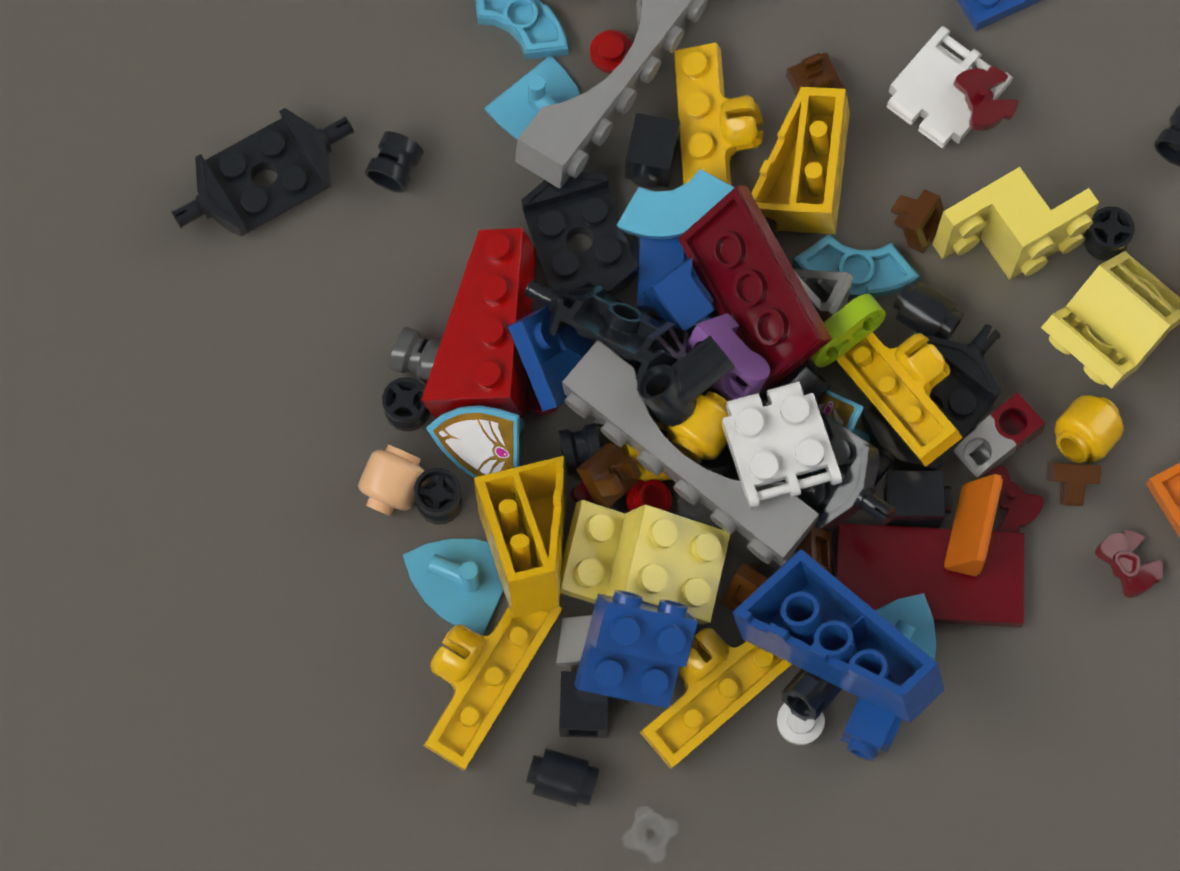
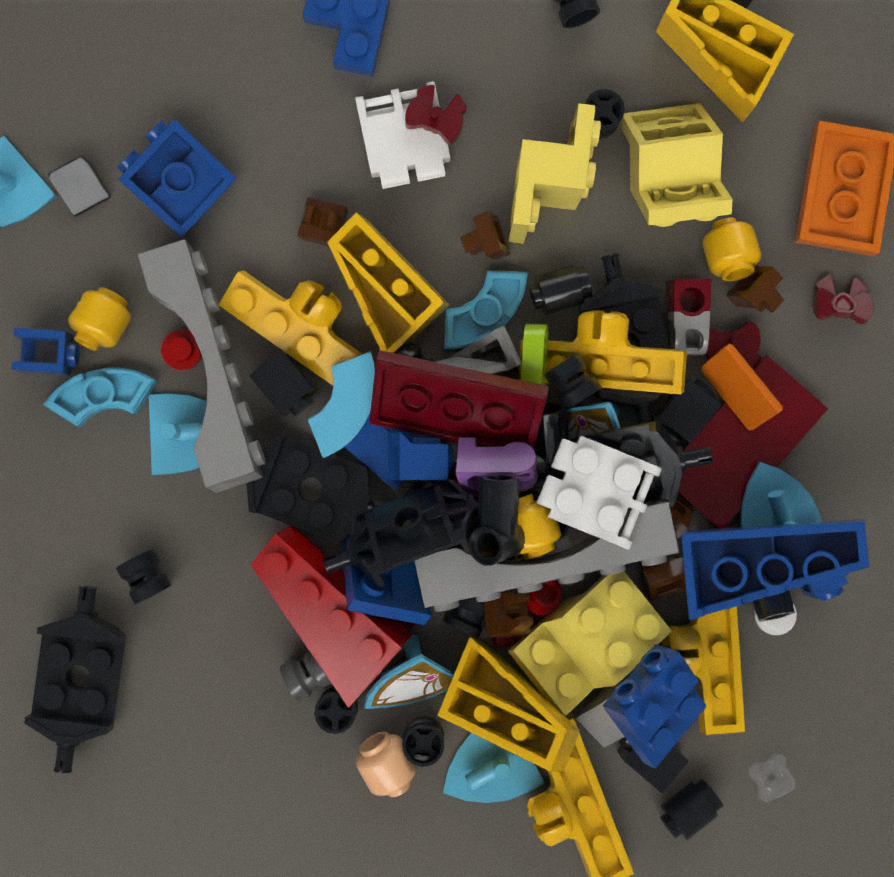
camera: 55 degrees left, 15 degrees up
(855, 369) = (578, 389): none -> black wheel

